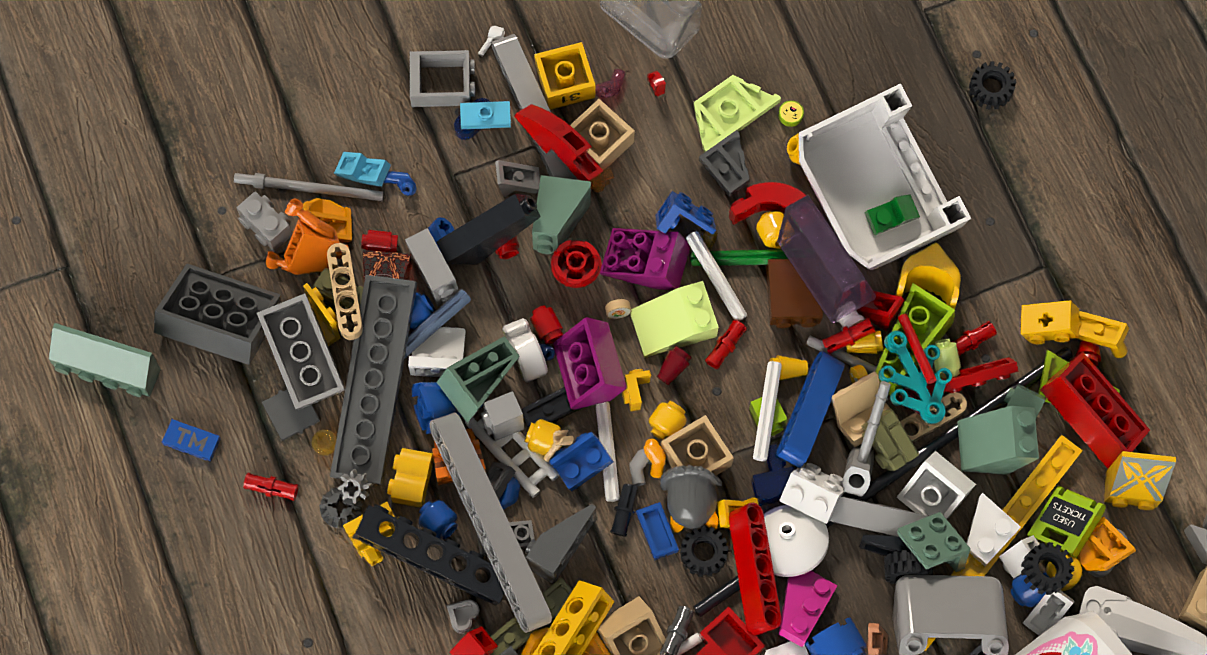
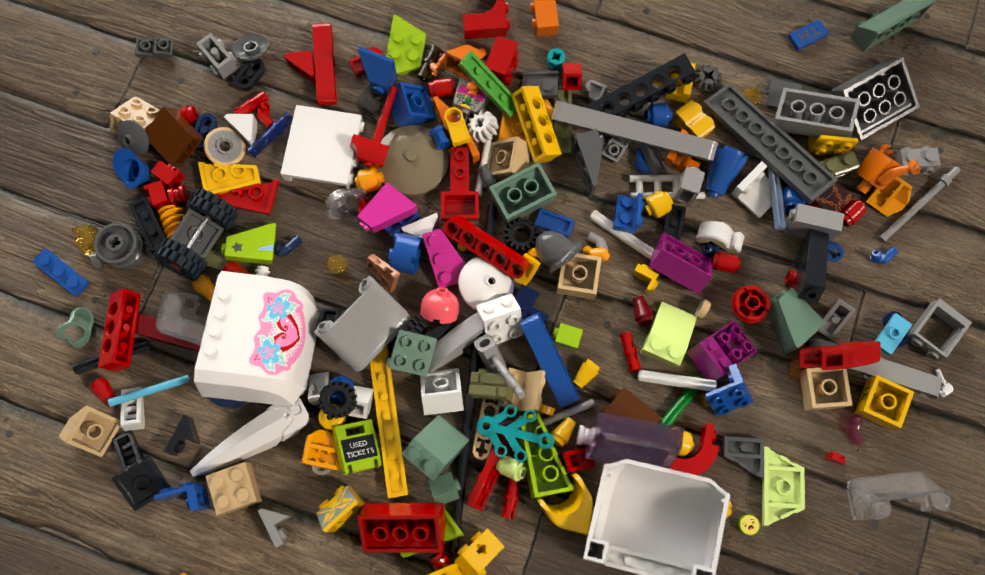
camera: 130 degrees right, 5 degrees up
(271, 486) = (748, 52): red pin -> none
(343, 291) = (837, 157): tan beam -> none
(350, 491) = (713, 85): light grey gear -> none
(362, 169) = (909, 240): medium azure slope -> none
(476, 376) = (724, 189): sand green wedge -> none
(559, 439) = (649, 206): tan hand -> none
(624, 510) = (580, 214): black axle -> none
(661, 581) = (522, 193): none -> sand green slope
(667, 420) = (612, 277): yellow head -> none
(767, 411) = (569, 331): white axle -> none
(848, 335) = (574, 421): red pin -> none
(859, 561) = (440, 305): none -> coral cylinder
(892, 214) = (629, 523): green slope -> none
(917, 349) = (530, 448): red bar -> none
(989, 530) = (391, 396): white wing -> none

